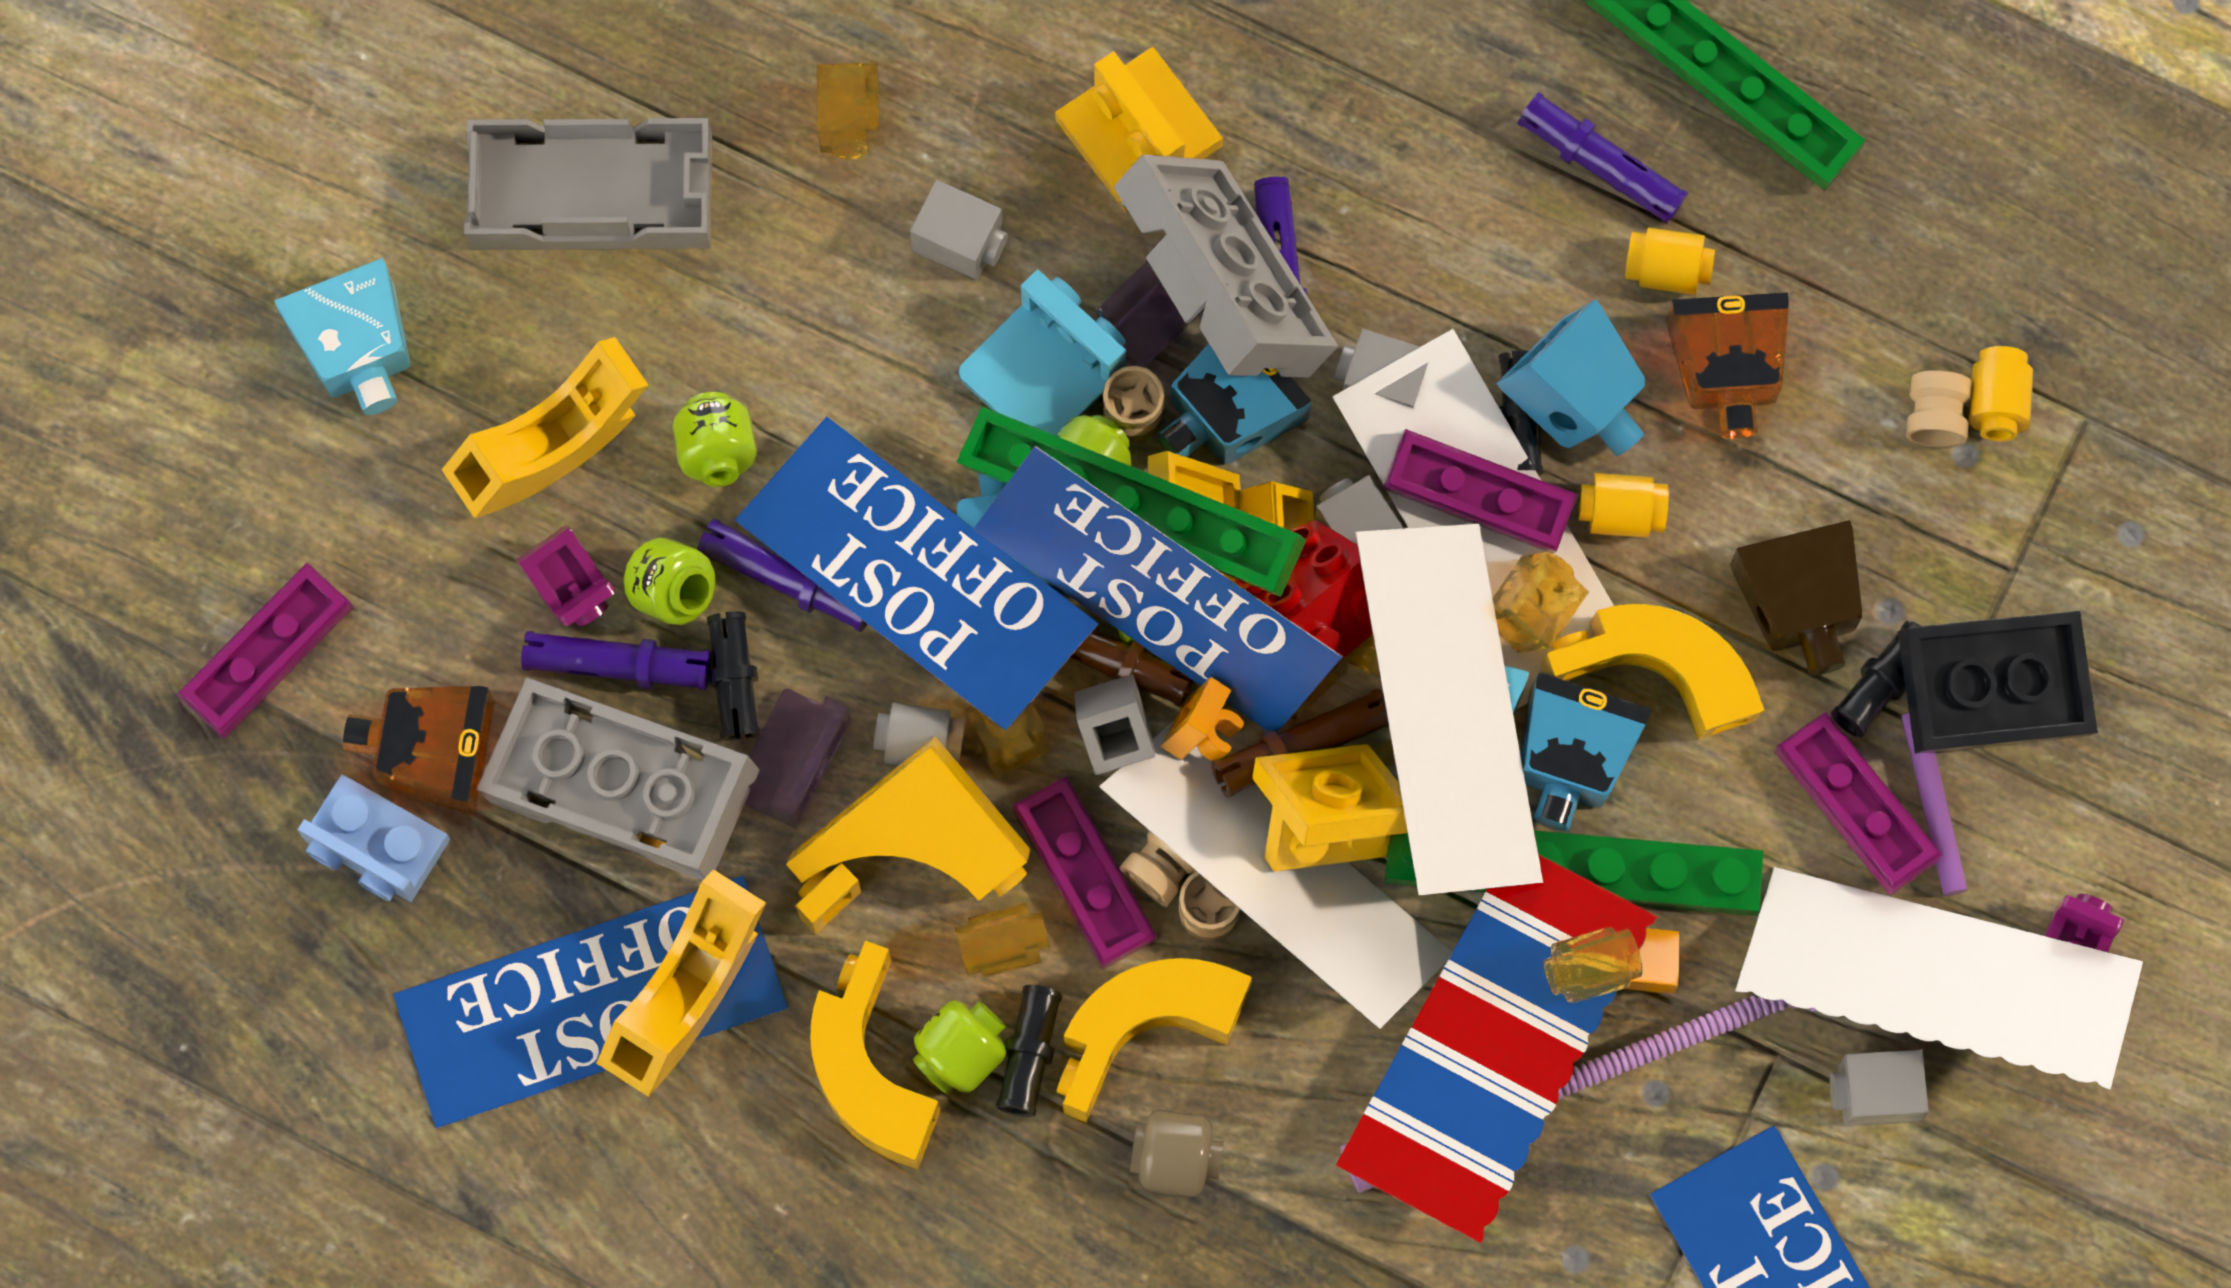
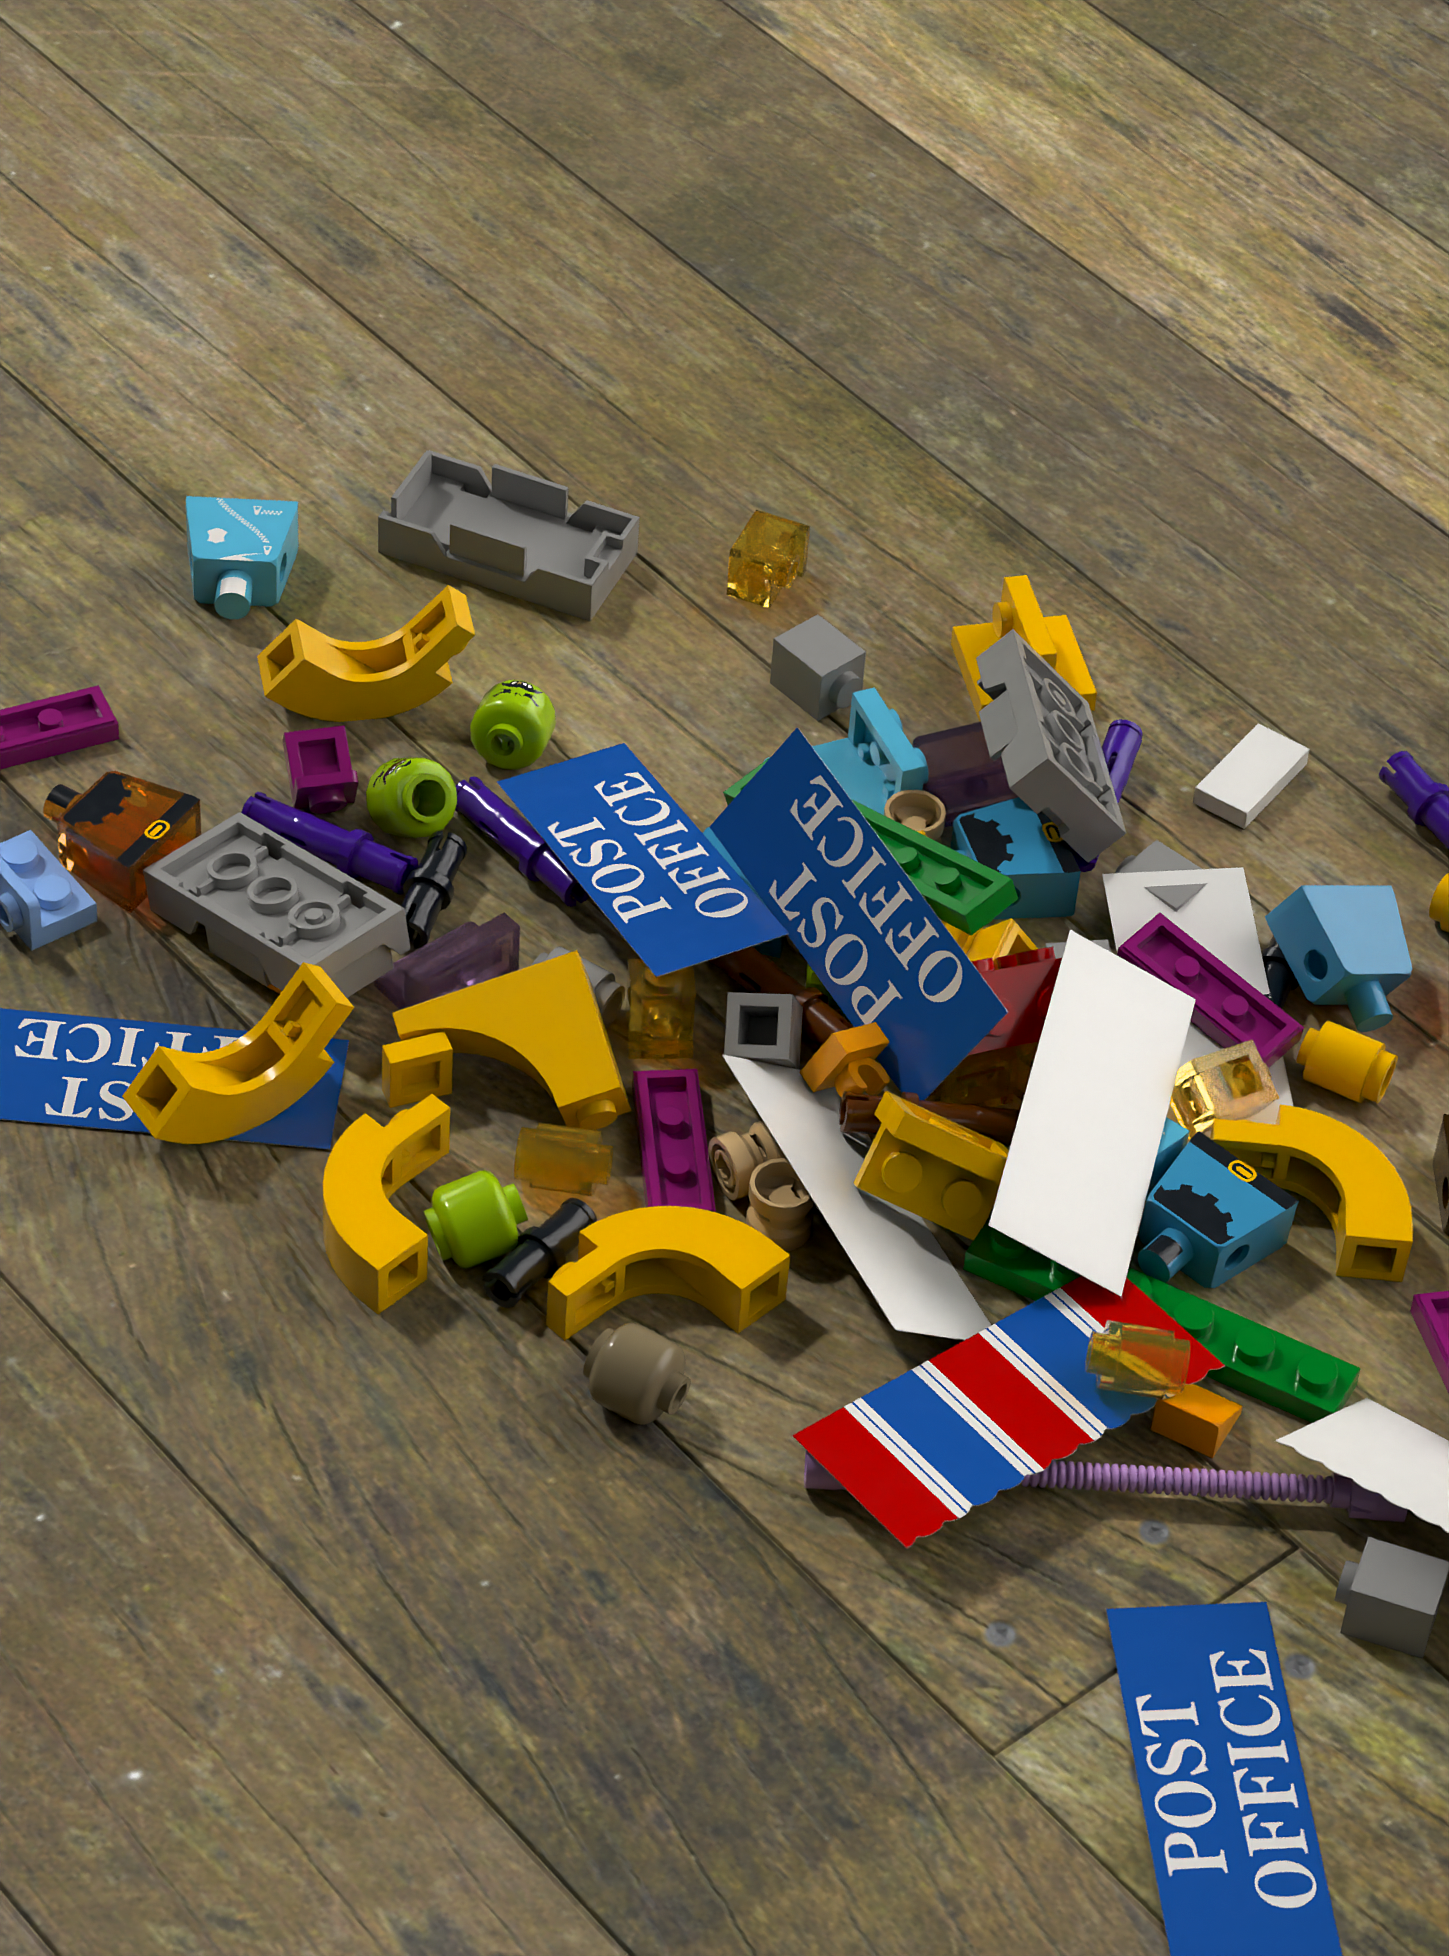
camera: 20 degrees right, 30 degrees down
(1401, 173) = (1251, 776): none -> white tile

